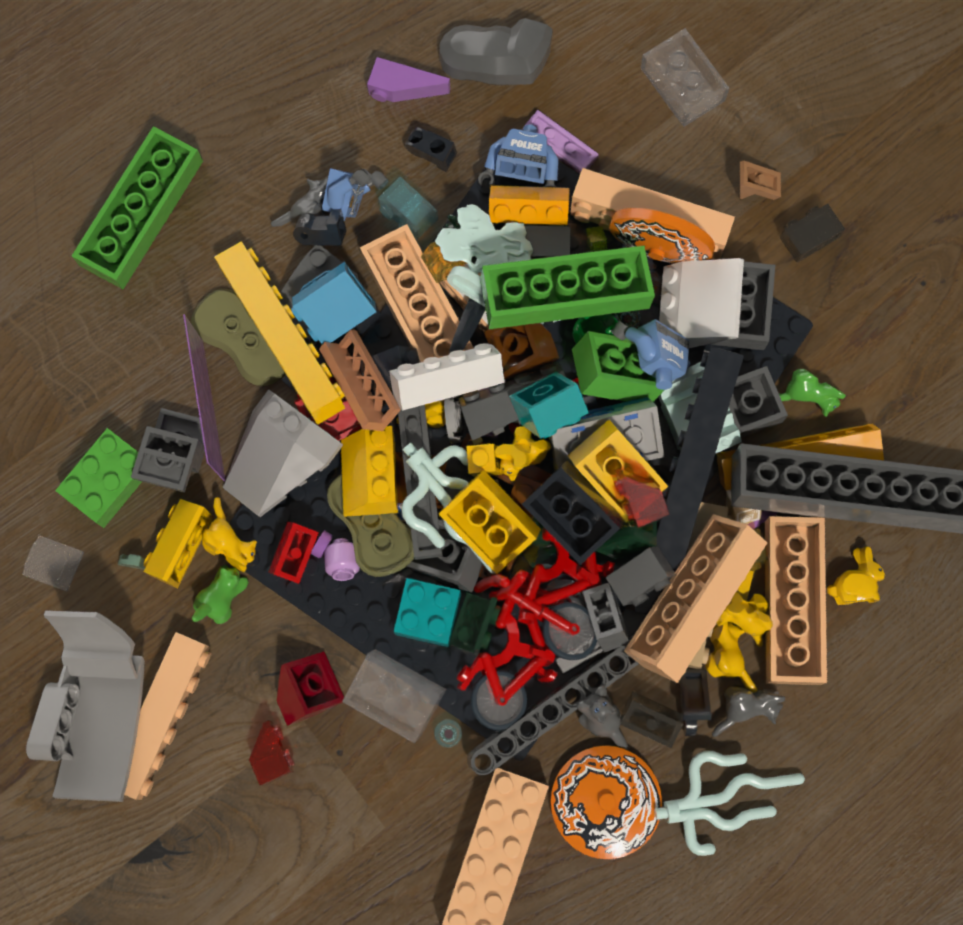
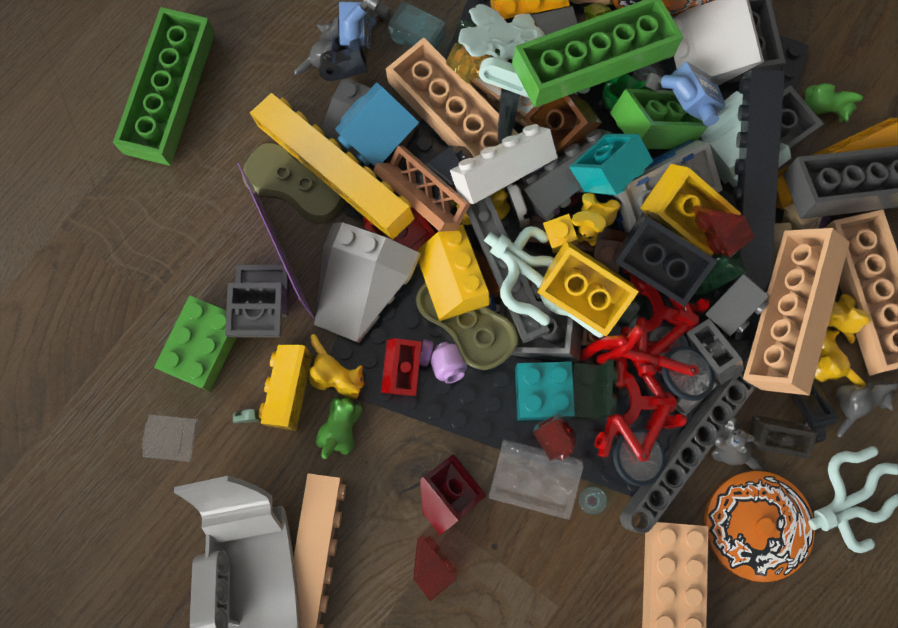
camera: 20 degrees left, 0 degrees up
(422, 659) = (555, 437): none -> clear red slope

